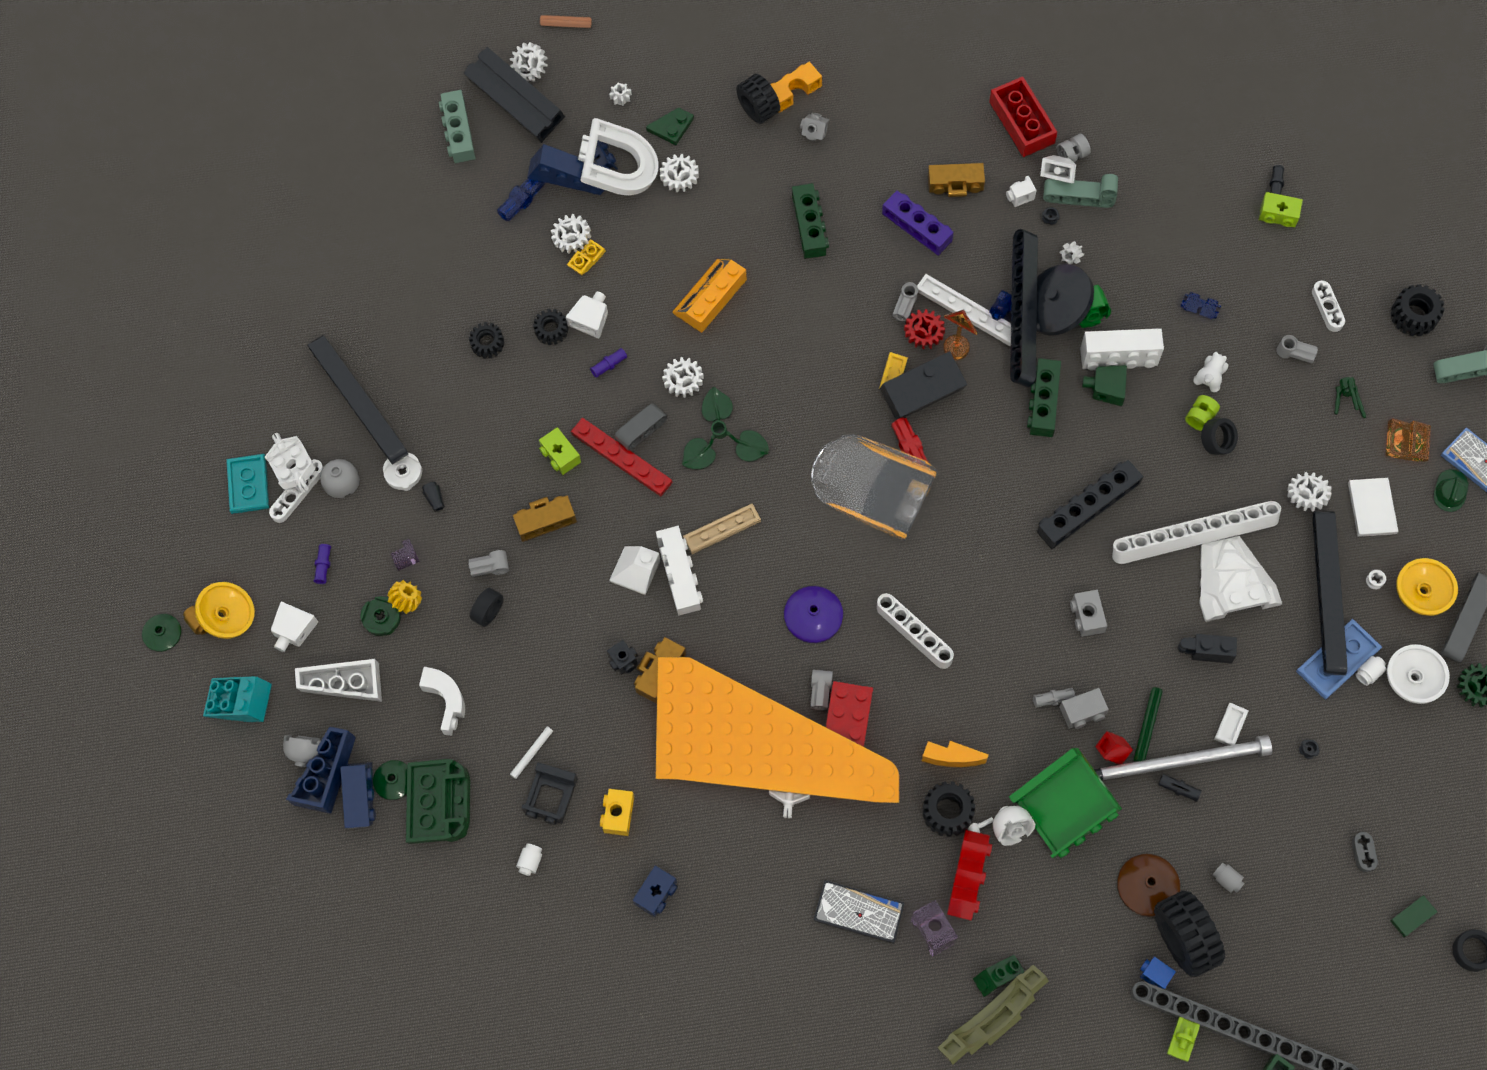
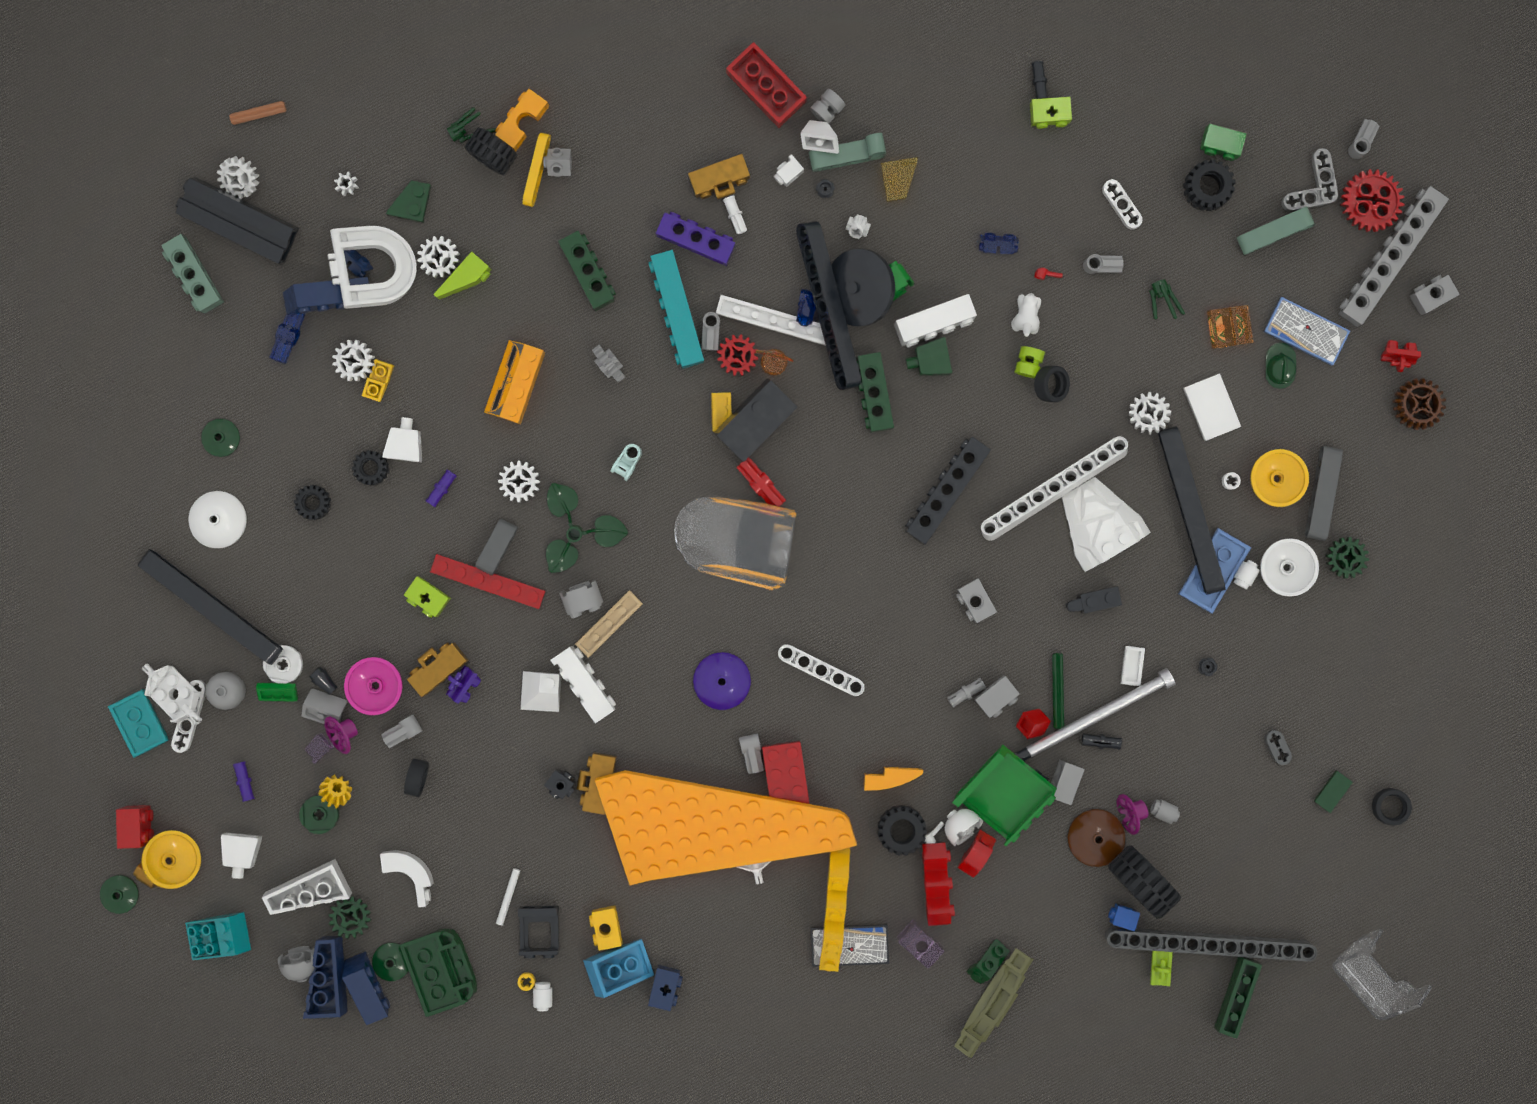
camera: 25 degrees left, 20 degrees up
(203, 566) = (134, 826): none -> red brick
(369, 724) = (354, 909): none -> dark green gear
(386, 493) = (277, 692): none -> green plate
(397, 340) = (229, 524): none -> white dish
(423, 521) = (321, 705): none -> light grey panel
(429, 271) = (229, 441): none -> dark green dish
(433, 544) = (342, 731): none -> magenta wheel
(478, 501) = (360, 690): none -> dark pink dish
(521, 835) = (526, 975): none -> yellow bush
(561, 535) = (461, 683): none -> dark purple hips
(615, 856) = (618, 968): none -> dark azure slope
(696, 195) = (466, 275): none -> lime slope
(704, 492) = (581, 598): none -> light grey brick
(734, 79) = (457, 128): none -> dark green plant
(787, 391) = (626, 462): none -> light aqua piece
(792, 129) = (536, 169): none -> yellow beam
(802, 298) = (608, 363): none -> light grey gear
(854, 864) = (835, 910): none -> yellow arch
(881, 275) = (677, 309): none -> teal brick
(960, 214) = (735, 214): none -> white axle
(1019, 858) = (977, 854): none -> red brick
(1121, 225) = (898, 177): none -> clear yellow wing
(1131, 816) = (1066, 781): none -> light grey hinge
(1195, 867) = (1134, 813): none -> magenta wheel
(1236, 341) = (1042, 272): none -> red hand
(1439, 277) = (1222, 142): none -> brick

